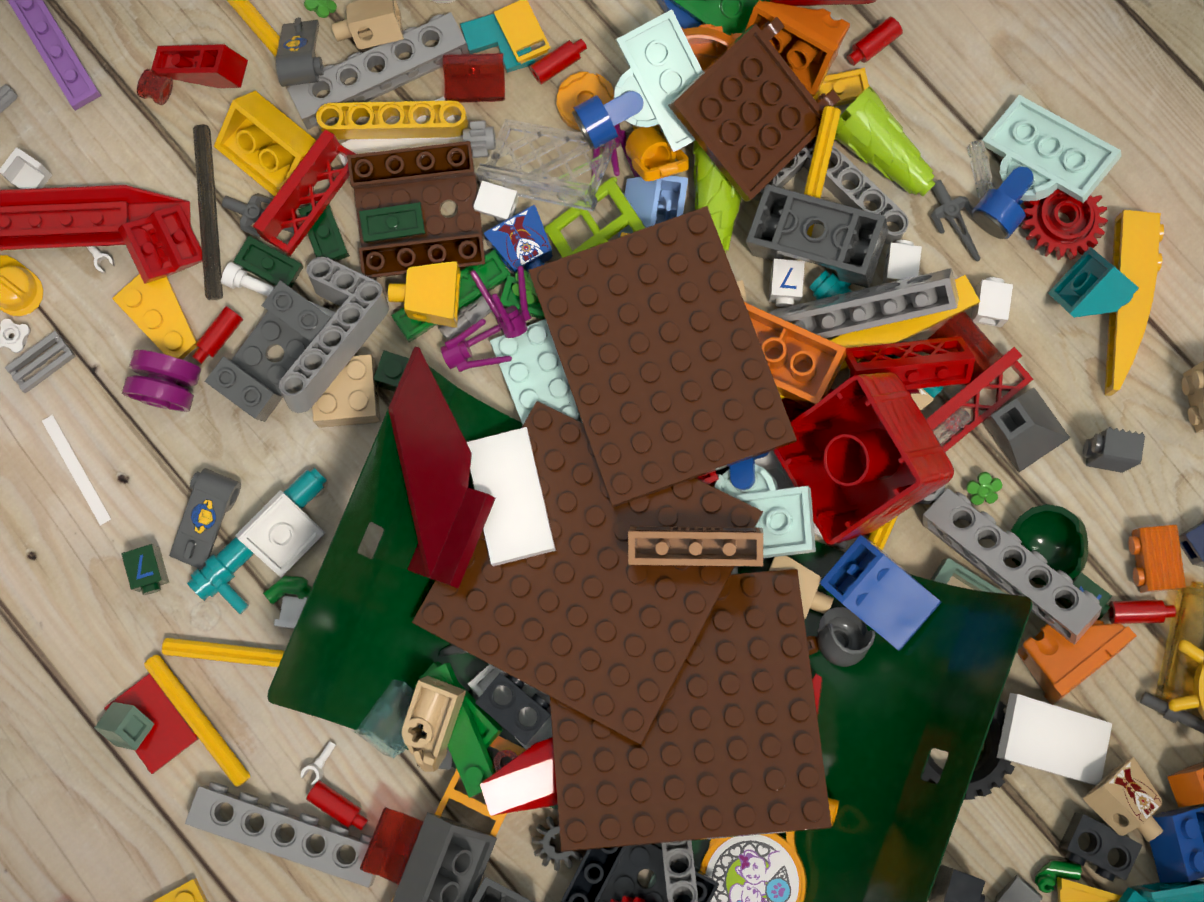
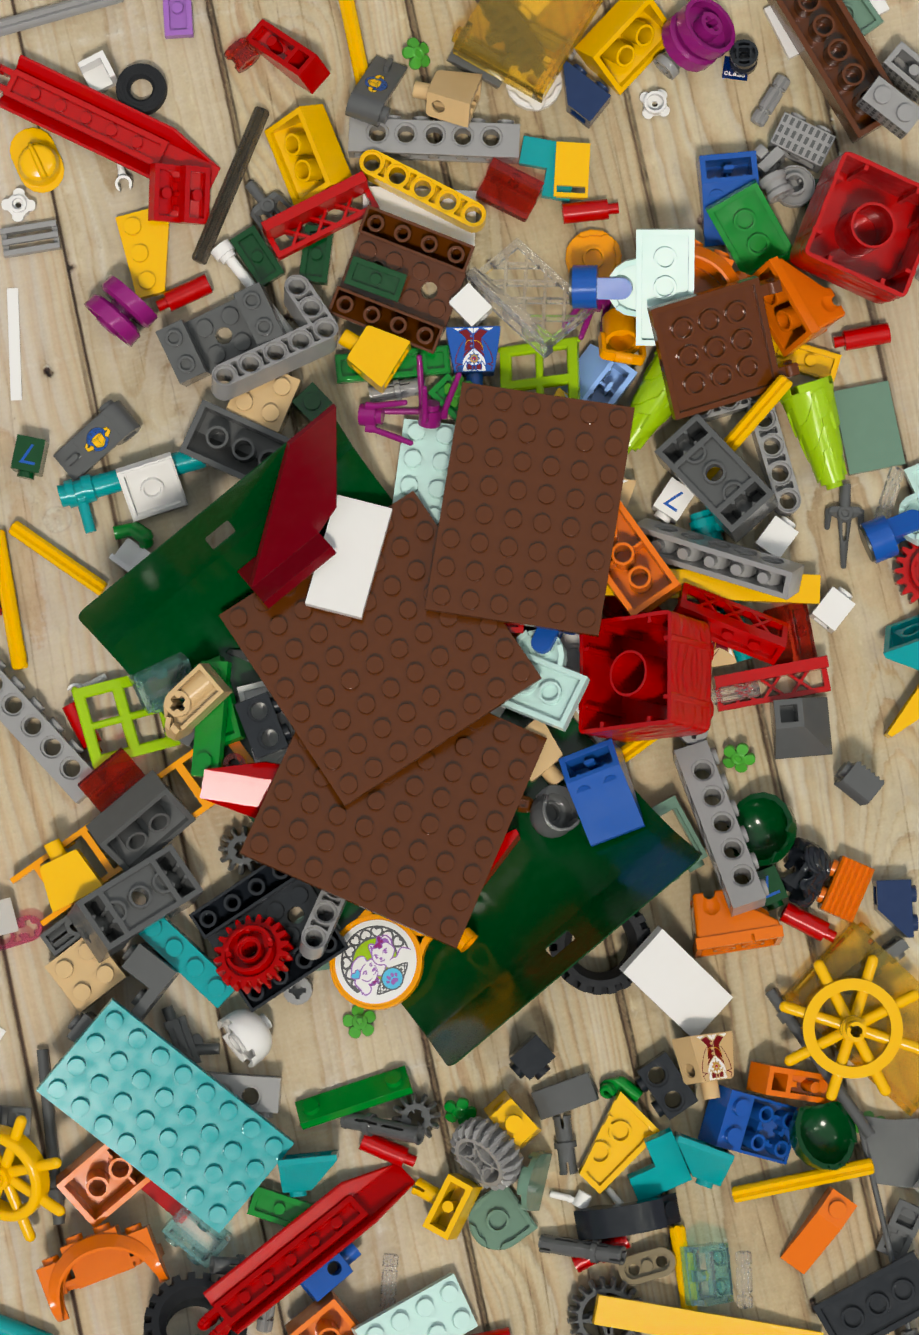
camera: 25 degrees right, 5 degrees up
(68, 151) = (148, 73): none -> black tyre
(329, 448) = (229, 441): none -> dark grey slope
(373, 774) = (125, 717): none -> lime window
(481, 138) = (486, 245): light grey gear -> none
(695, 546) = (470, 676): medium nougat brick -> none
(930, 120) = (869, 428): none -> sand green tile
(1116, 561) = (811, 871): none -> black hair

